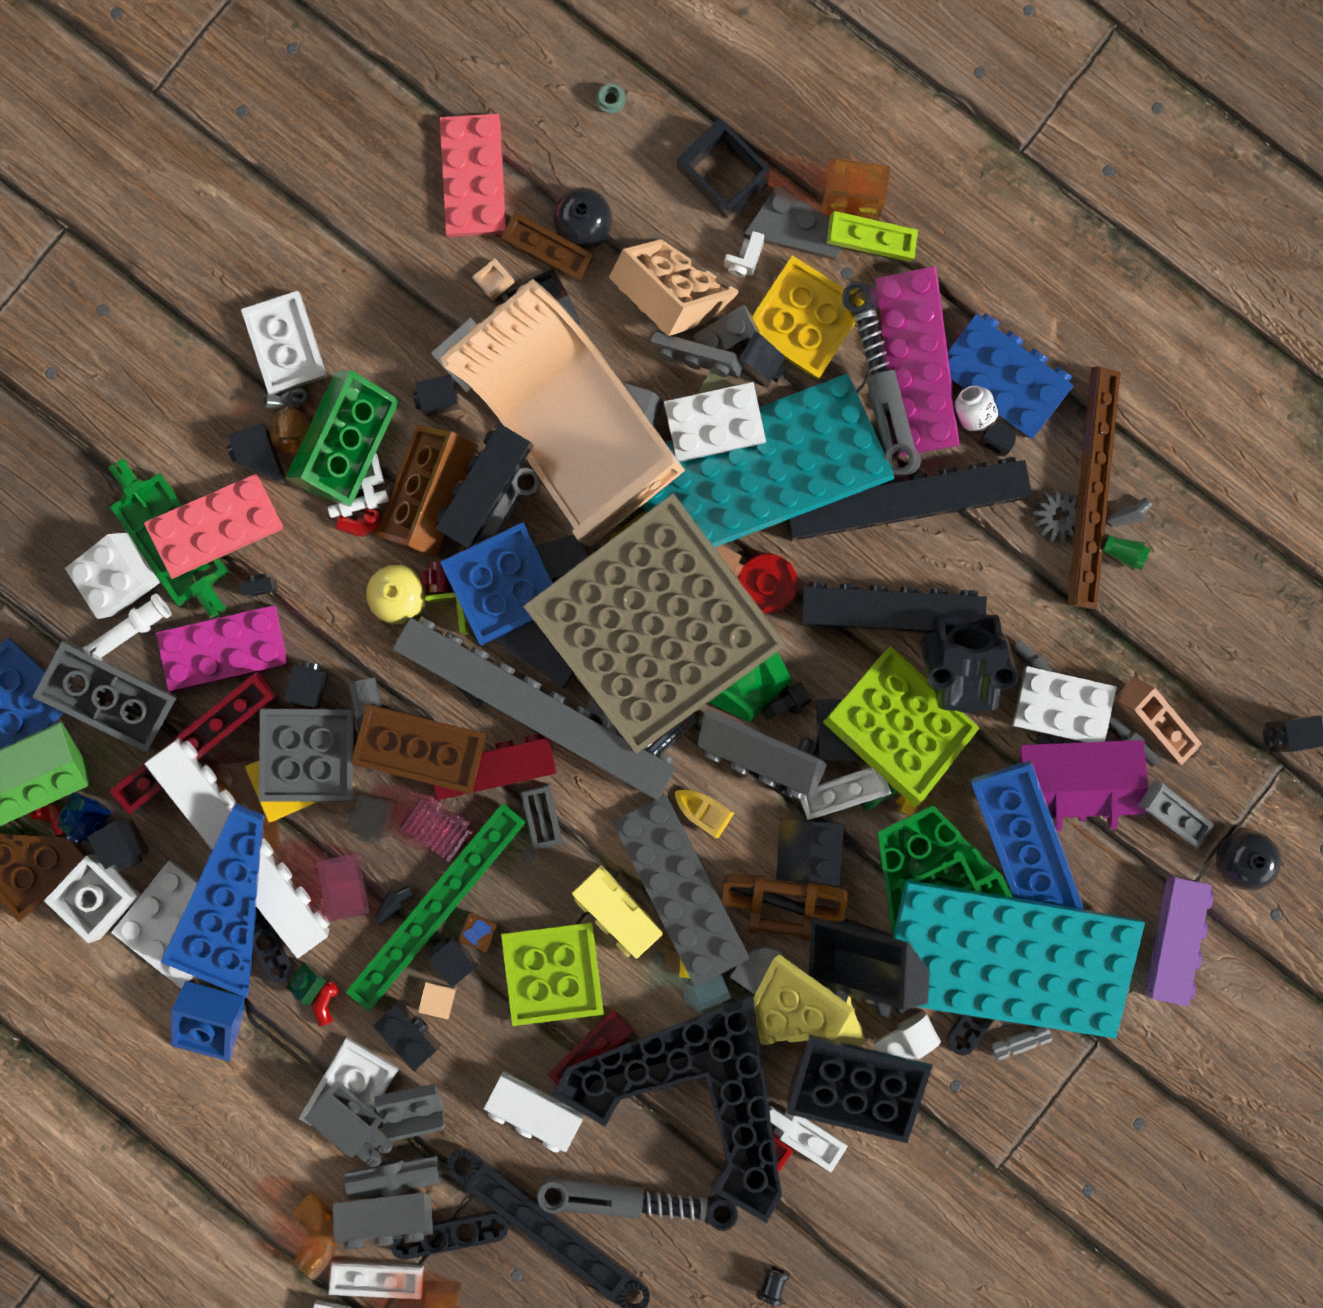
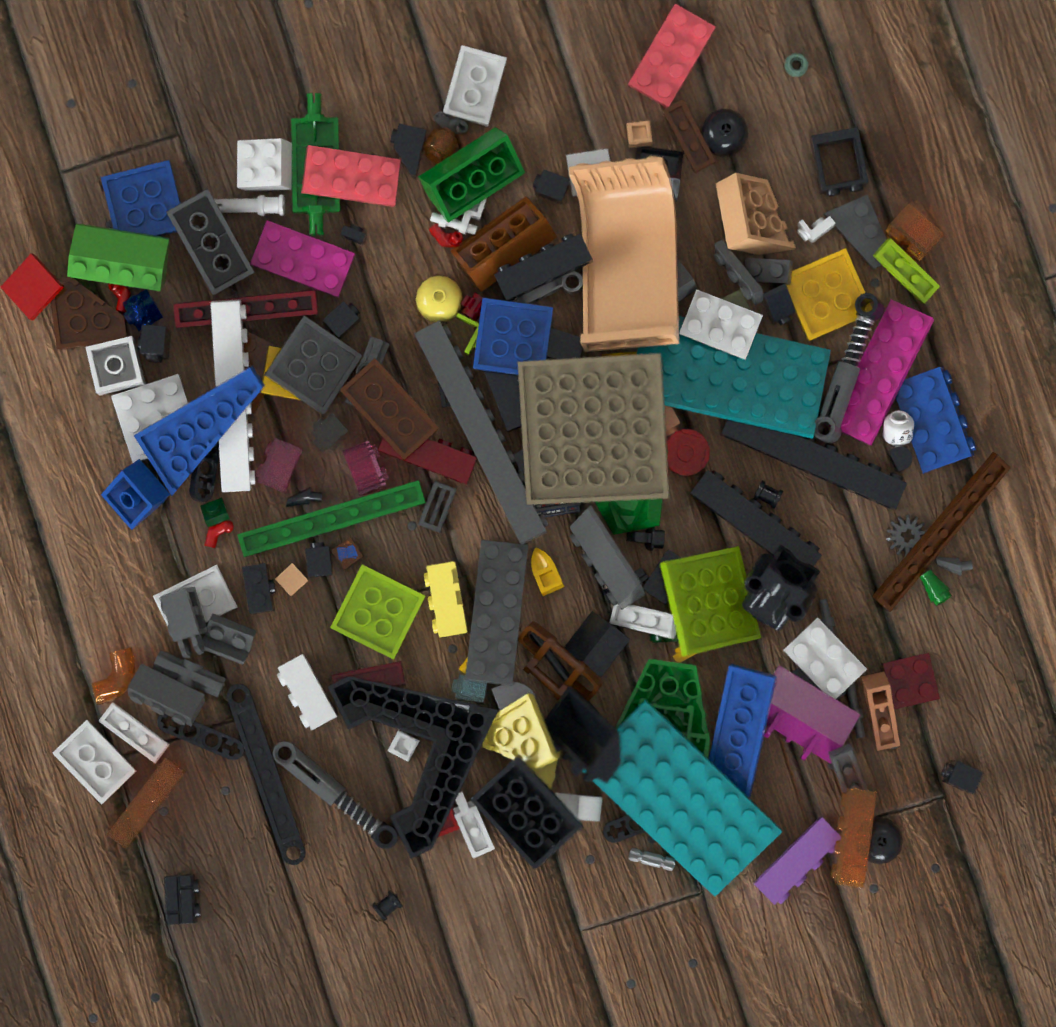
camera: 30 degrees right, 0 degrees up
(676, 1100) = (403, 745): none -> white tile
(884, 570) = (768, 494): none -> black bush
(1168, 665) = (911, 680): none -> dark red plate
(1229, 877) = (855, 837): none -> clear orange brick

